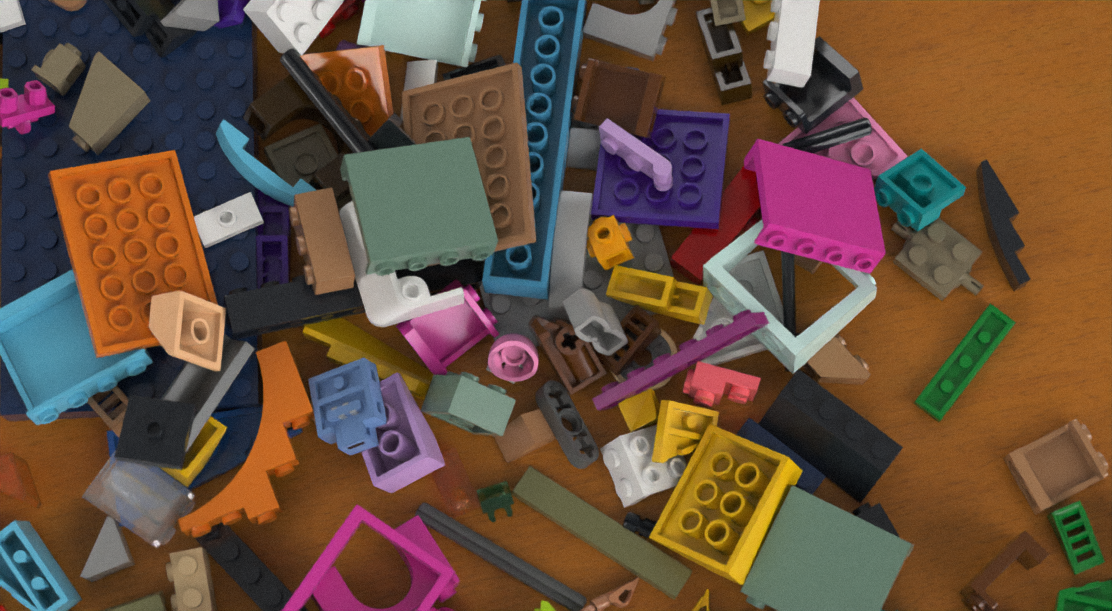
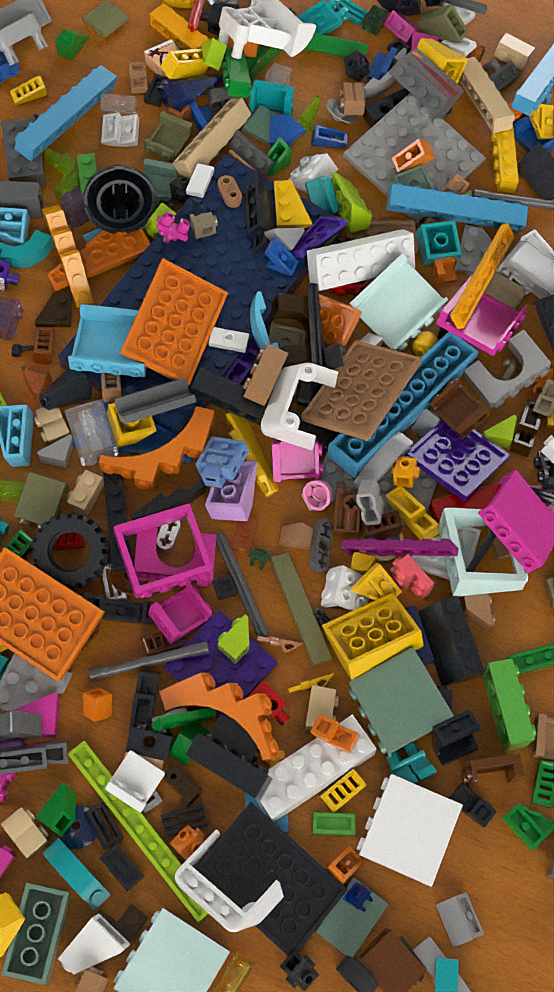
camera: 30 degrees right, 10 degrees down
(53, 459) = (66, 390): none -> black cone
(67, 517) = (52, 424): none -> tan brick
(105, 105) = (211, 253): dark tan slope -> none
(155, 432) = (120, 402): black plate -> none
(189, 328) = (173, 368): light nougat slope -> none
(211, 44) = (280, 258): none -> blue slope
(311, 525) = (175, 499): none -> black slope
(359, 561) = (164, 532): none -> white beam
(420, 205) = (323, 385): sand green panel -> none
(468, 404) = (279, 499): sand green brick -> none
(481, 577) = (224, 587): none -> black plate
(500, 27) = (424, 342): none -> yellow head
(636, 154) = (449, 439): lavender plate -> none
(697, 86) = (502, 432): none -> lime slope
(928, 565) = (454, 737): none -> black panel
(964, 471) = (508, 705): none -> bright green brick

